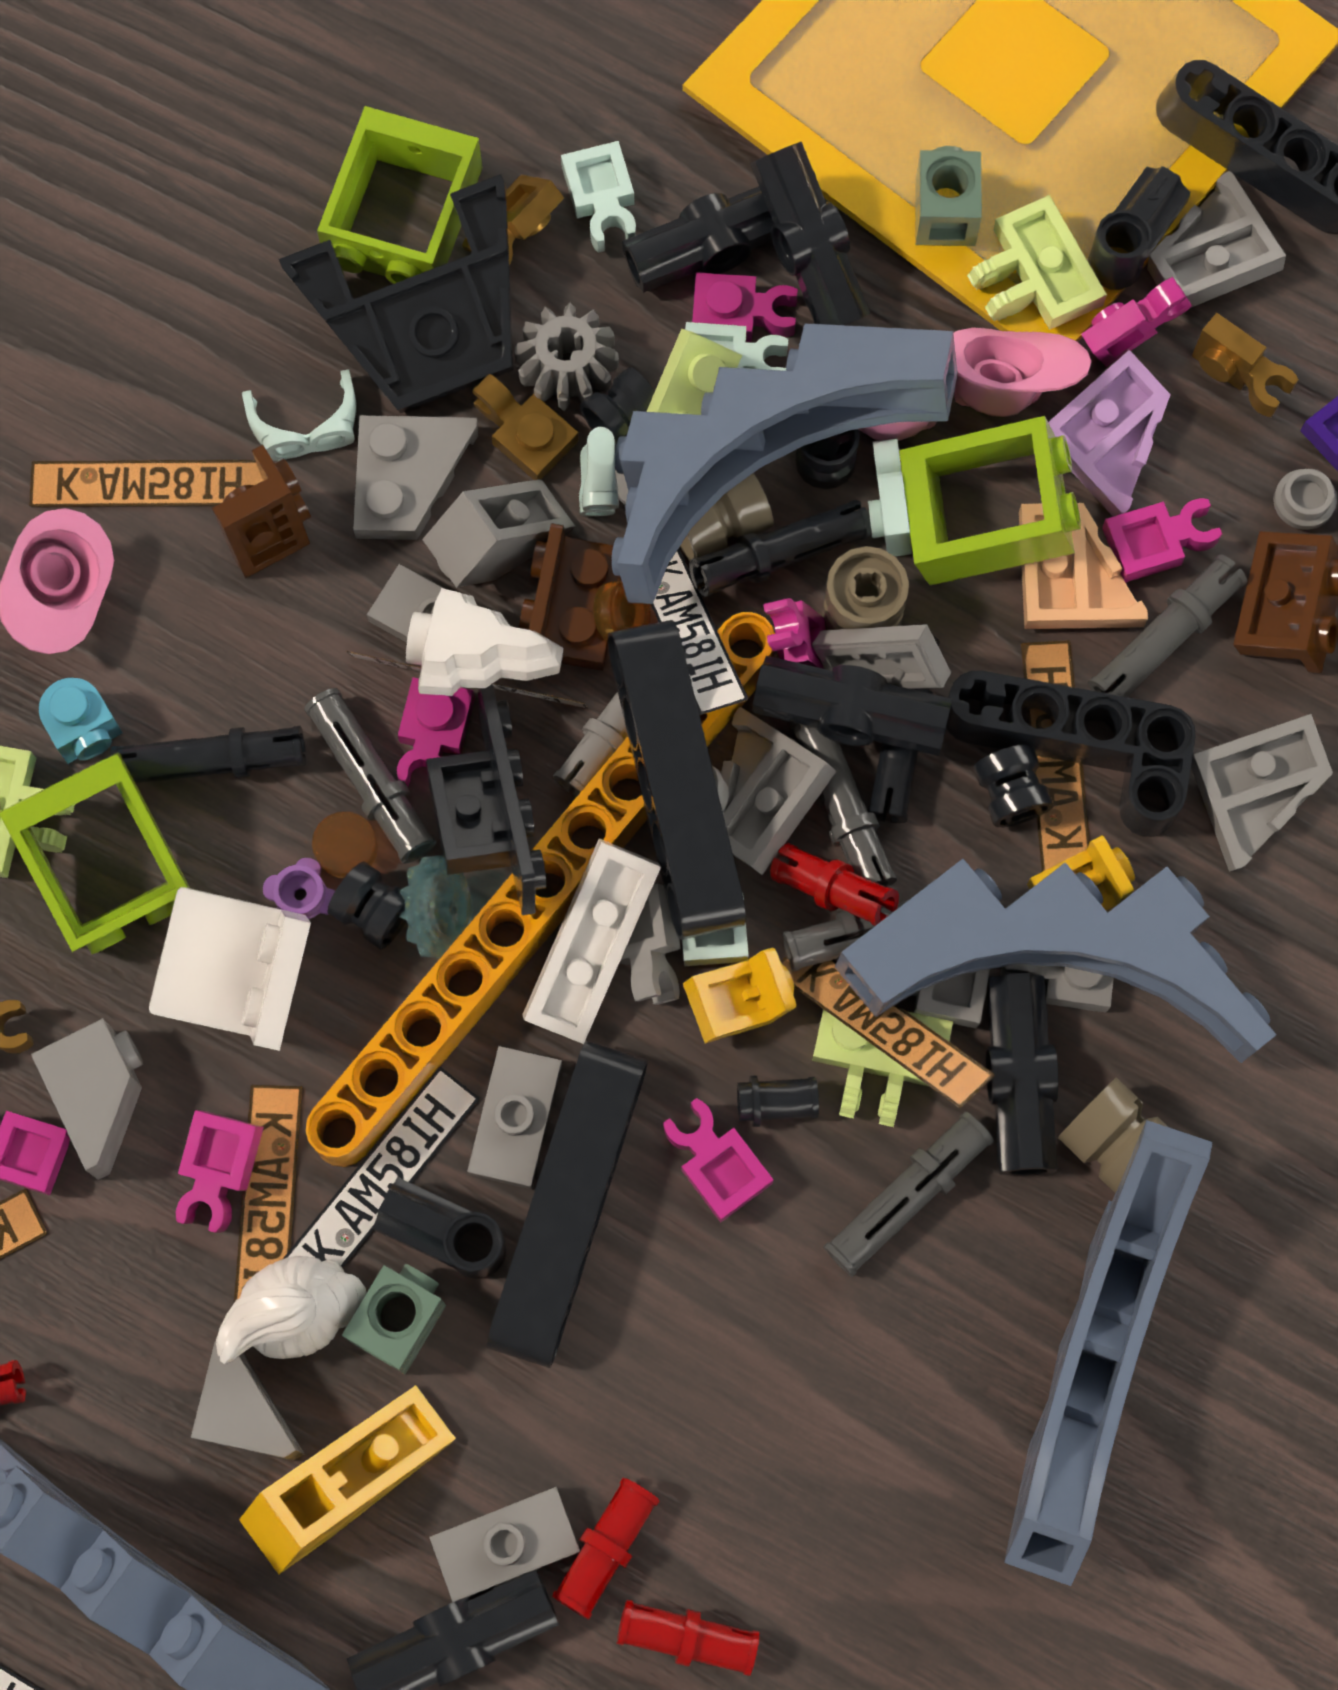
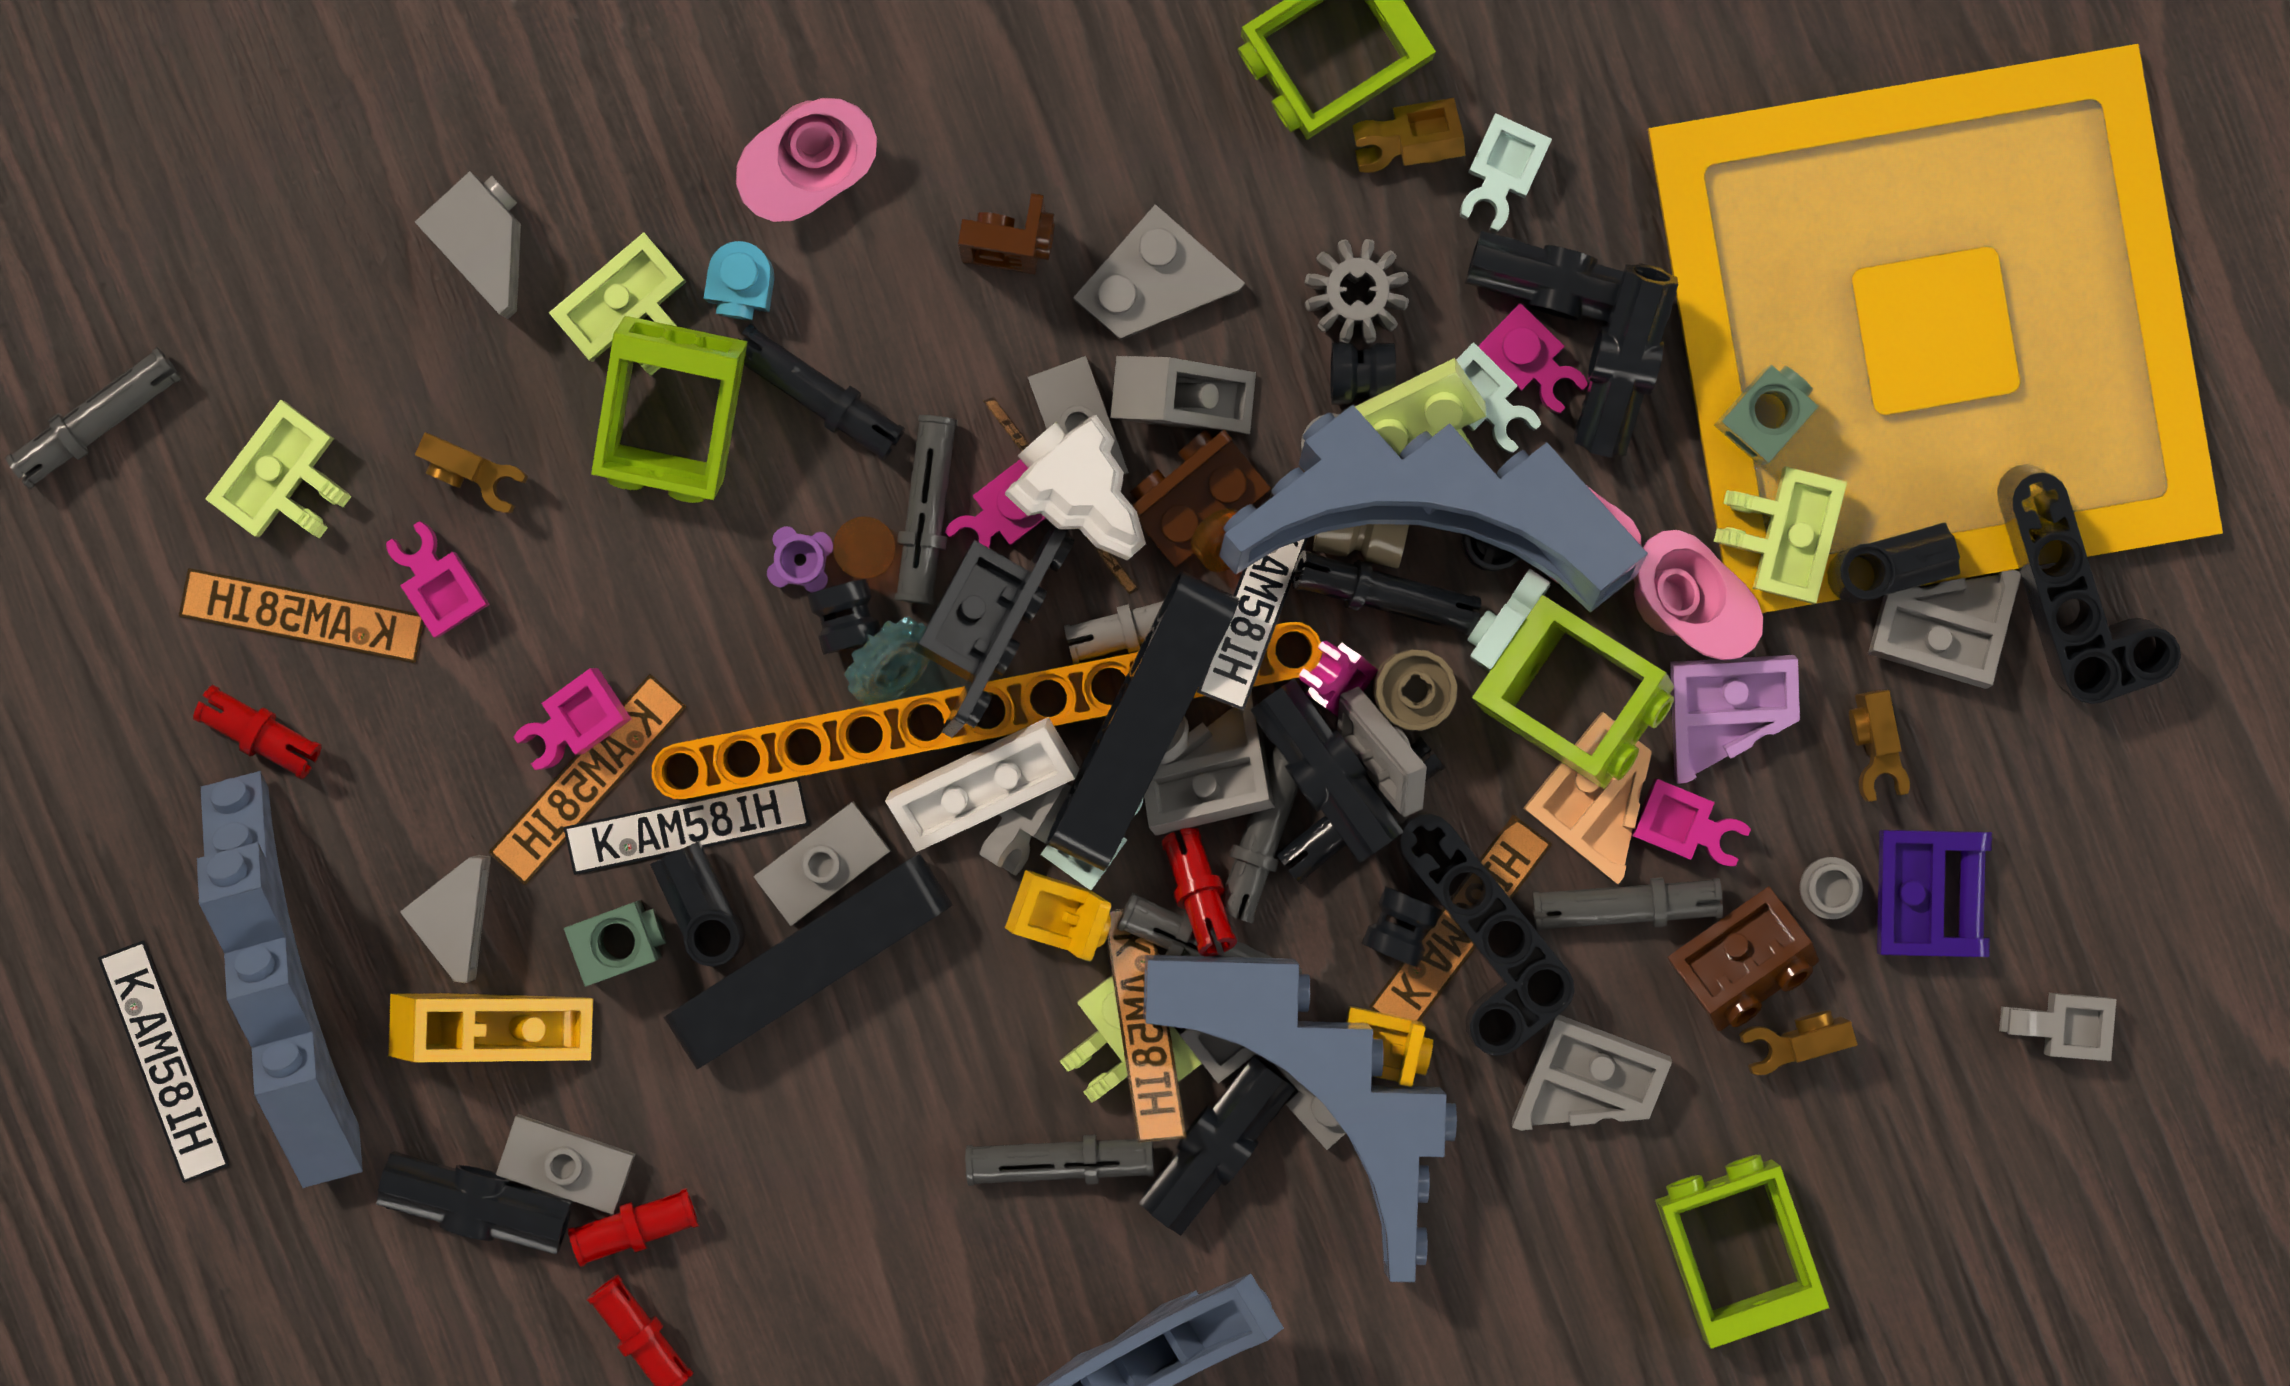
camera: 35 degrees right, 15 degrees up
(93, 1090) = (527, 588): light grey slope -> none
(138, 482) = (949, 117): clear orange sticker -> none
(230, 965) = (703, 582): white bracket -> none
(290, 1309) = (545, 874): white hair -> none
(330, 435) = (1126, 201): light aqua cap -> none
(435, 327) = (1269, 182): black wing -> none
(529, 433) = (1278, 330): pearl gold plate -> none
(598, 478) = (1292, 419): light aqua cap -> none
(722, 1167) = (940, 1031): dark pink plate -> none
(777, 1099) = (1023, 1012): black pin -> none
(1108, 1131) = (1244, 1245): dark tan wheel -> none
(1129, 325) = (1809, 635): dark pink plate -> none

